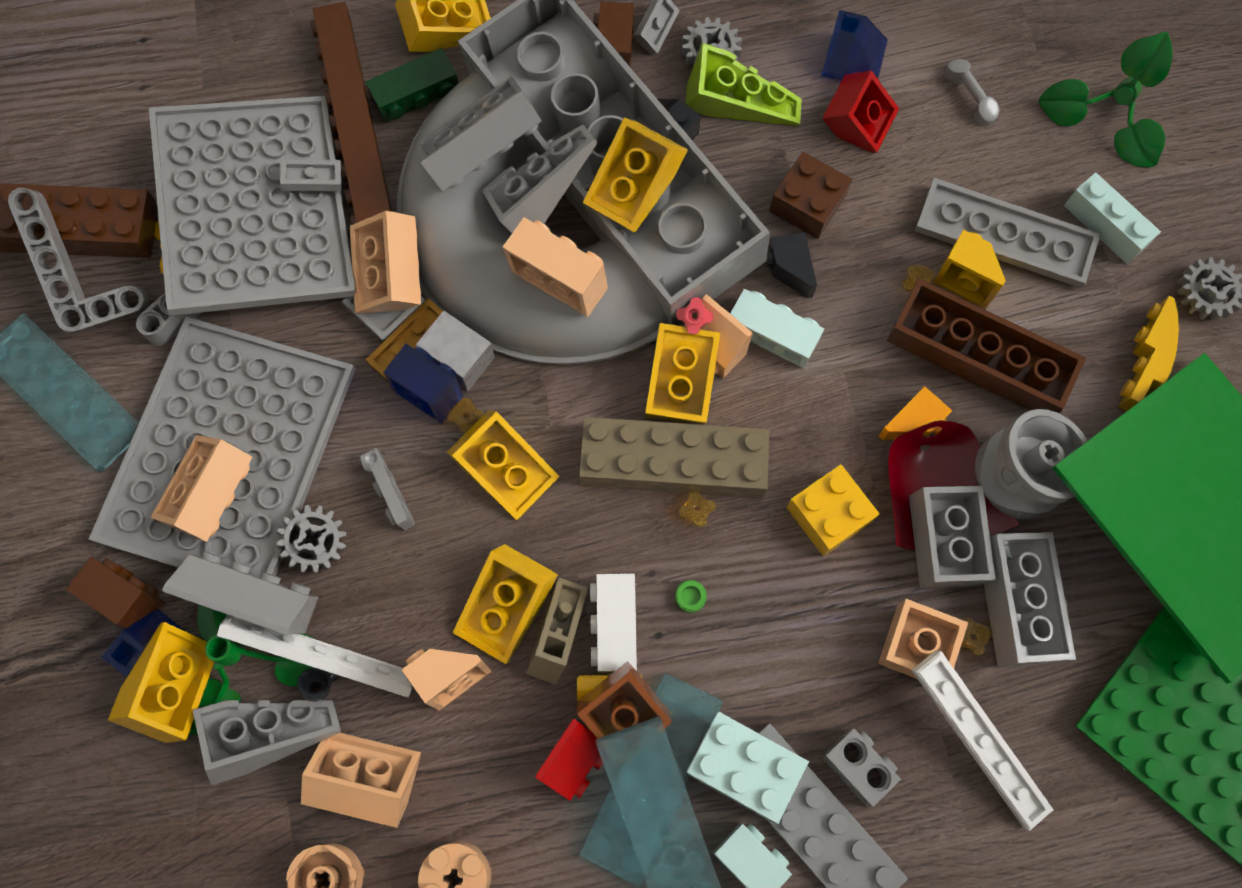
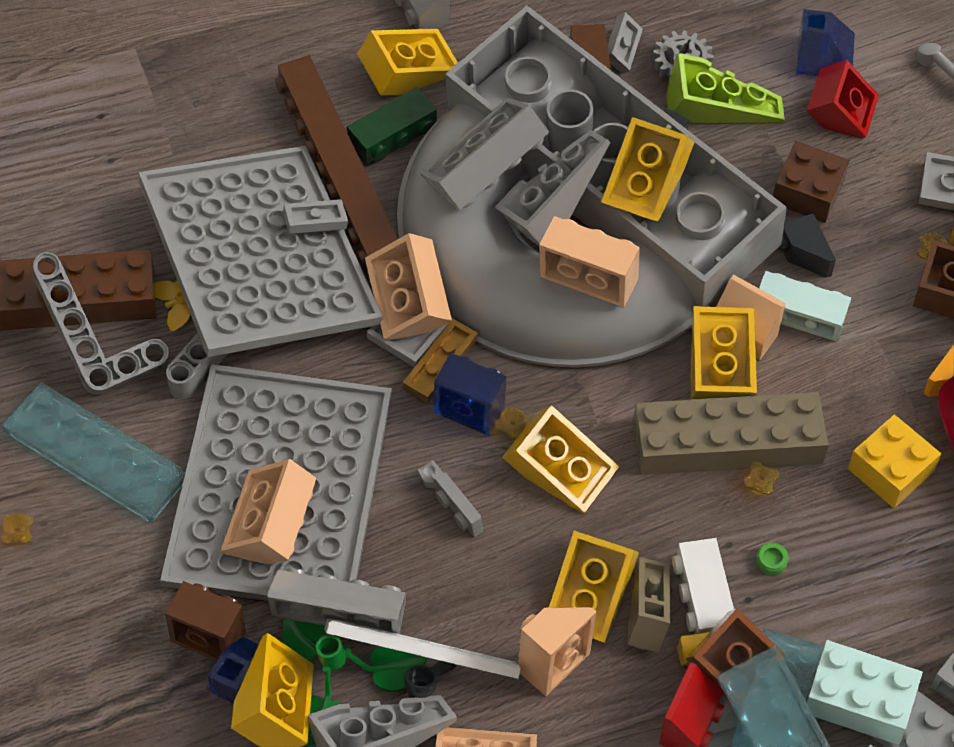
camera: 10 degrees left, 15 degrees down
(303, 526) = (390, 563): light grey gear -> none
(458, 347) = (498, 352): flat silver piece -> none
(695, 306) = (726, 303): coral plate -> none

